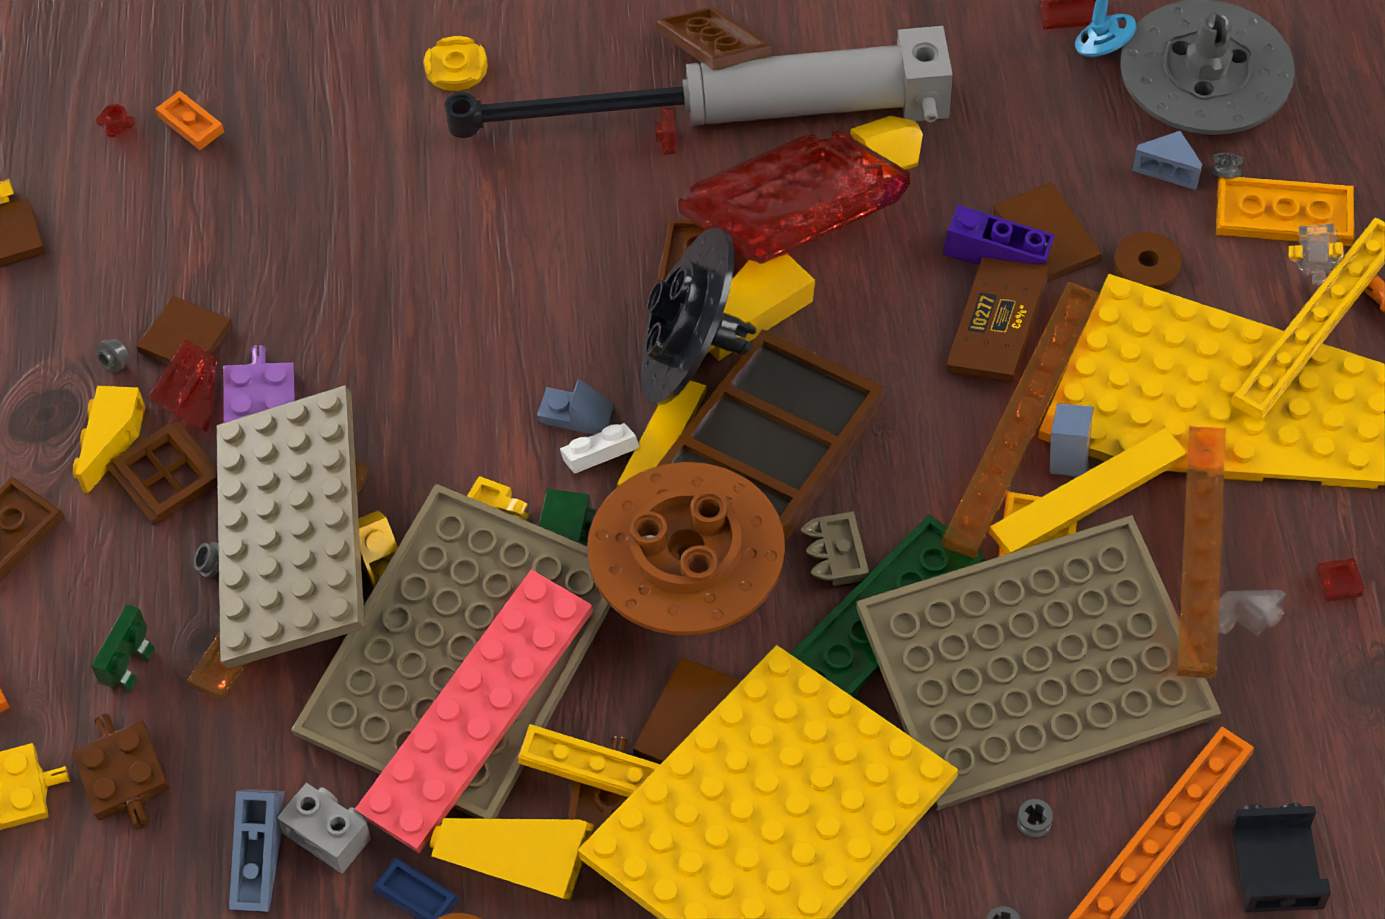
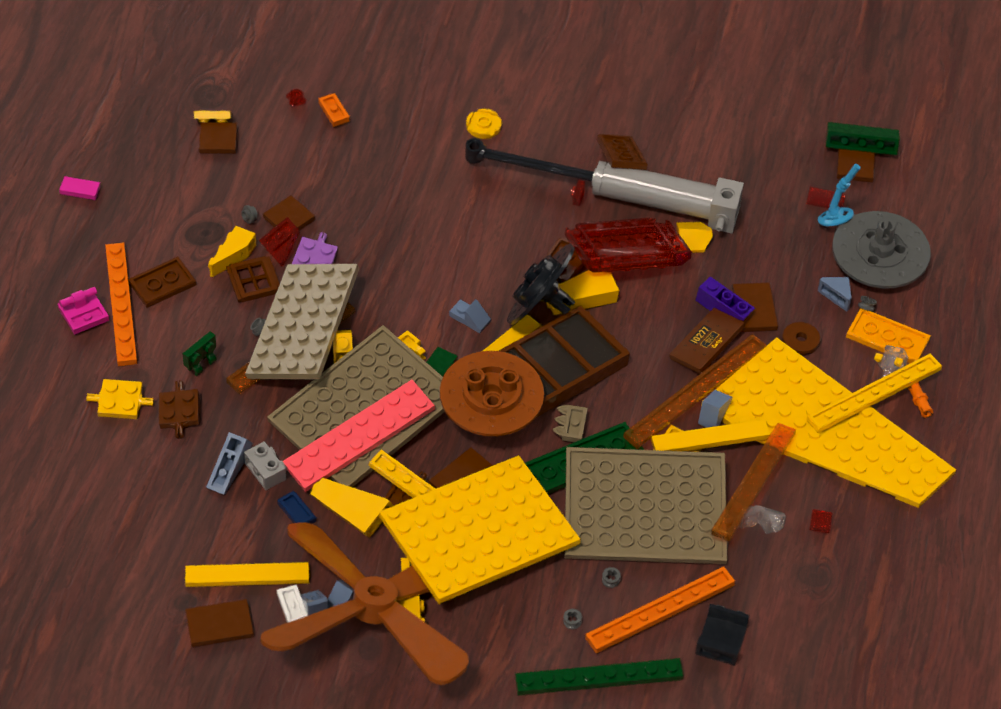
camera: 15 degrees right, 5 degrees down
(601, 447) = (480, 336): white plate -> none

